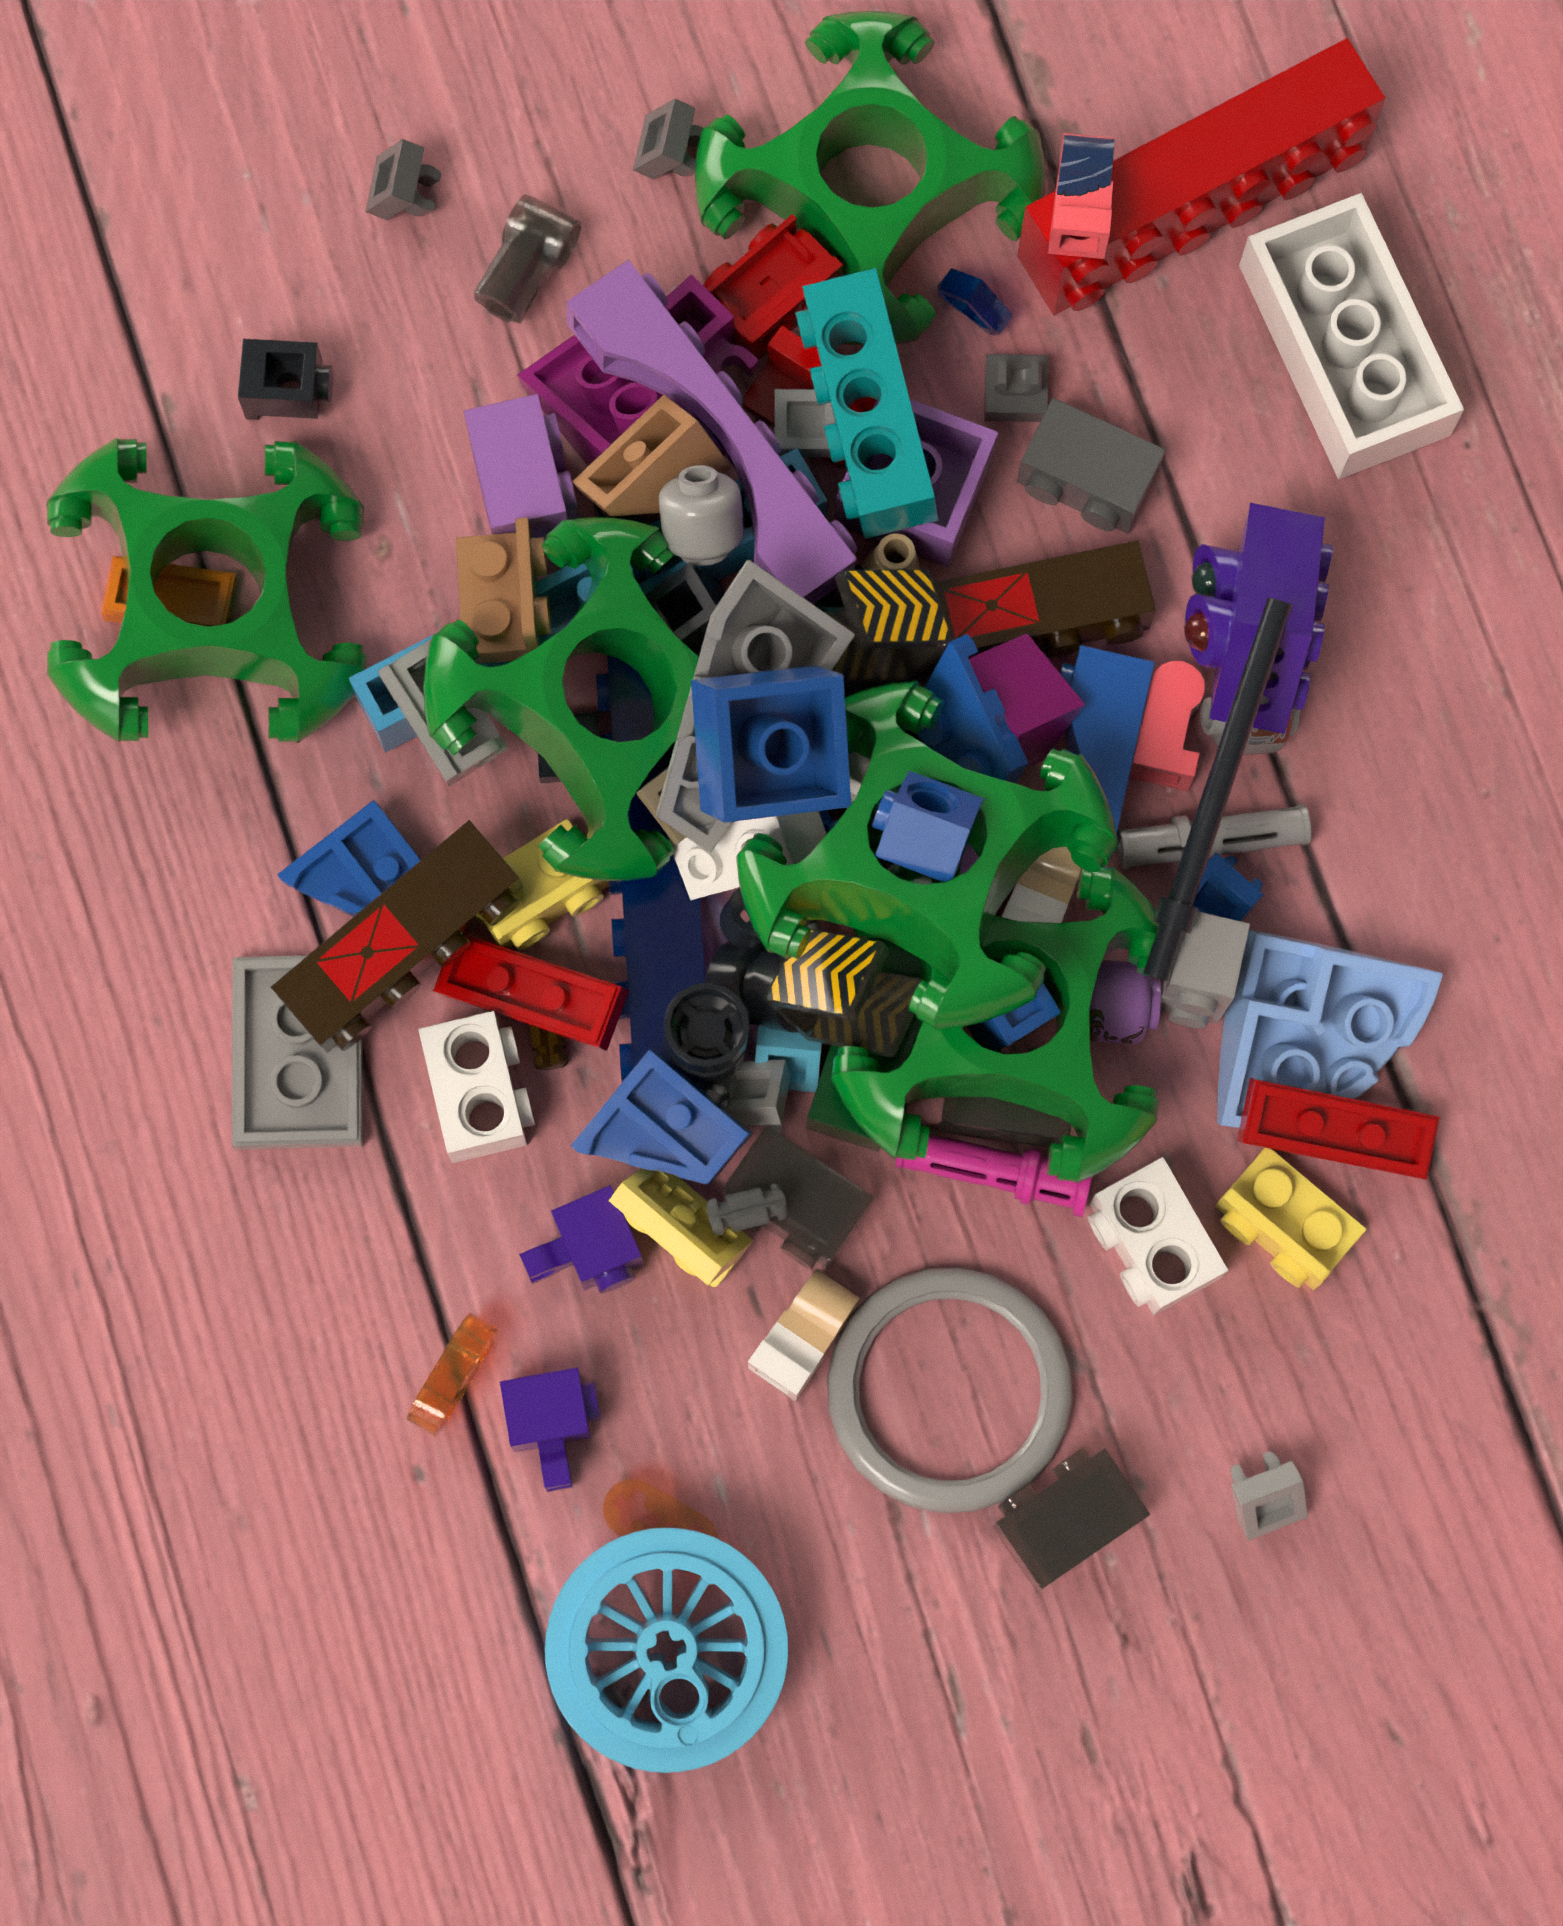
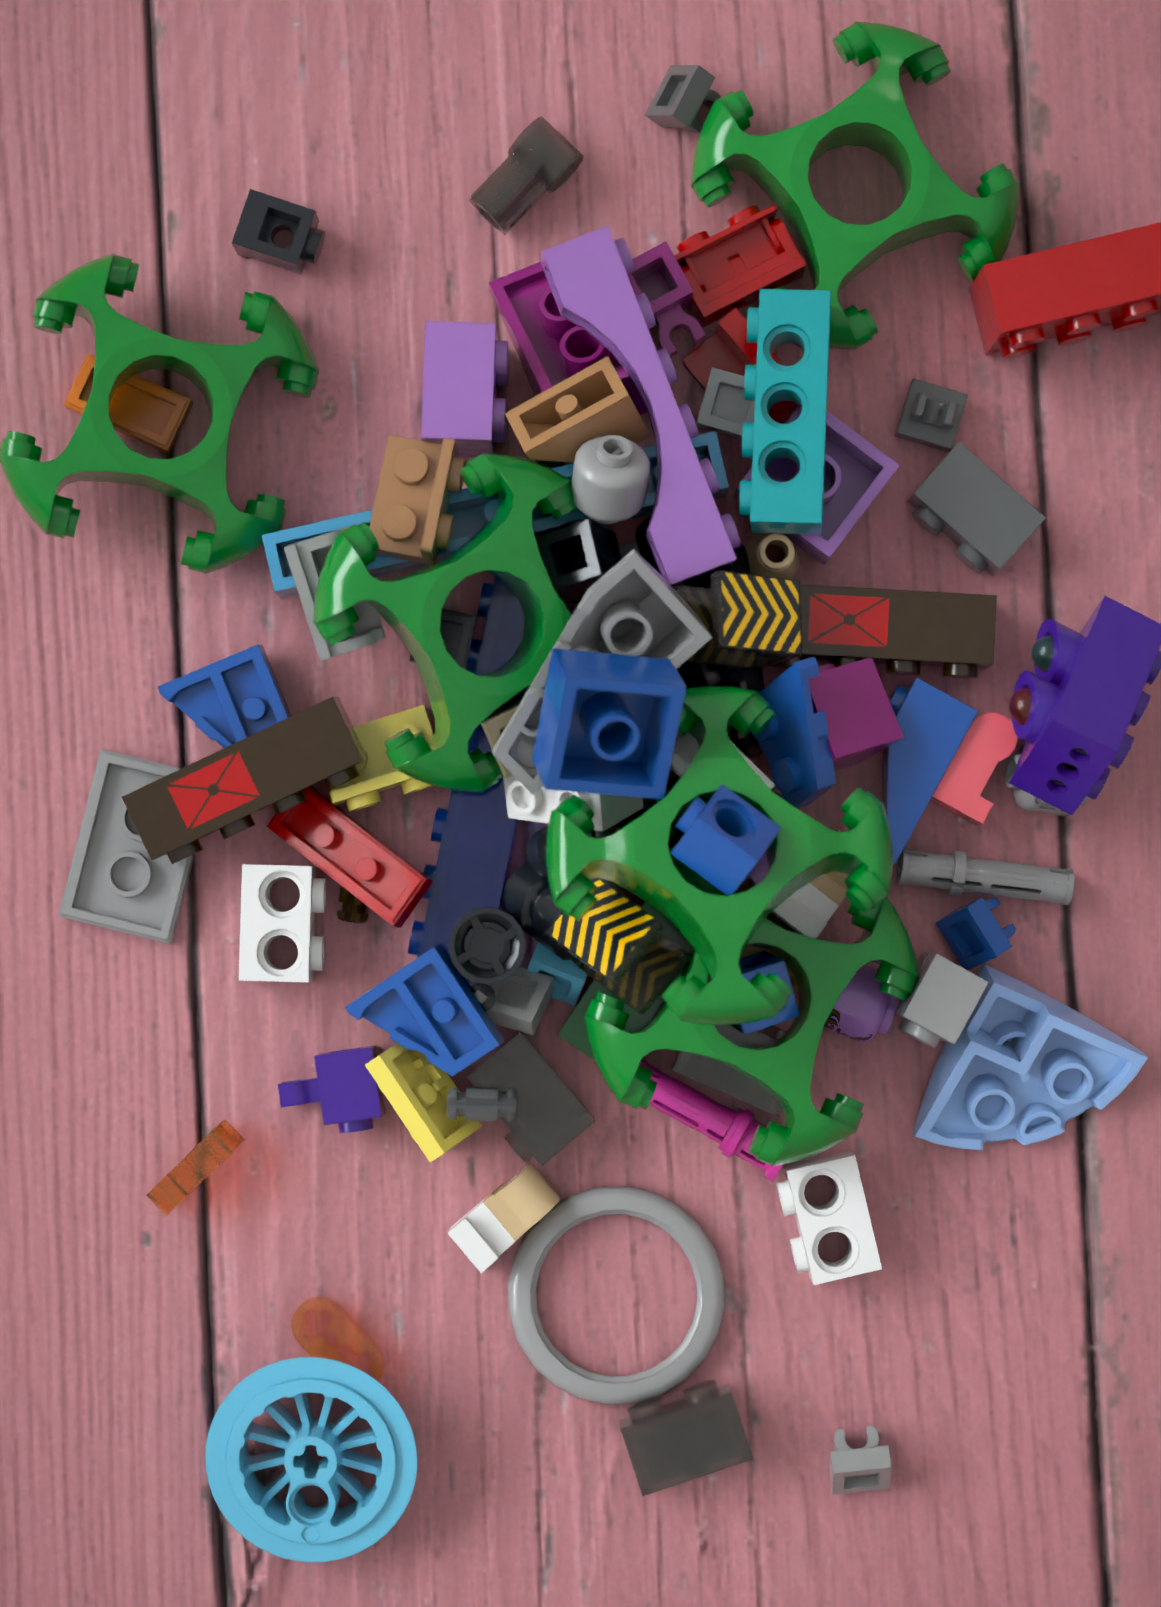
camera: 15 degrees right, 10 degrees up
(396, 182) = (428, 69): dark grey tile -> none
(546, 1414) = (267, 1225): dark purple brick -> none
(975, 300) = (916, 326): clear blue tile -> none
(1083, 196) = (1037, 273): leg -> none
(1177, 911) = (928, 956): black bar -> none
(1289, 1220) = (951, 1231): light yellow bracket -> none
(1338, 1128) = (1015, 1166): red tile -> none

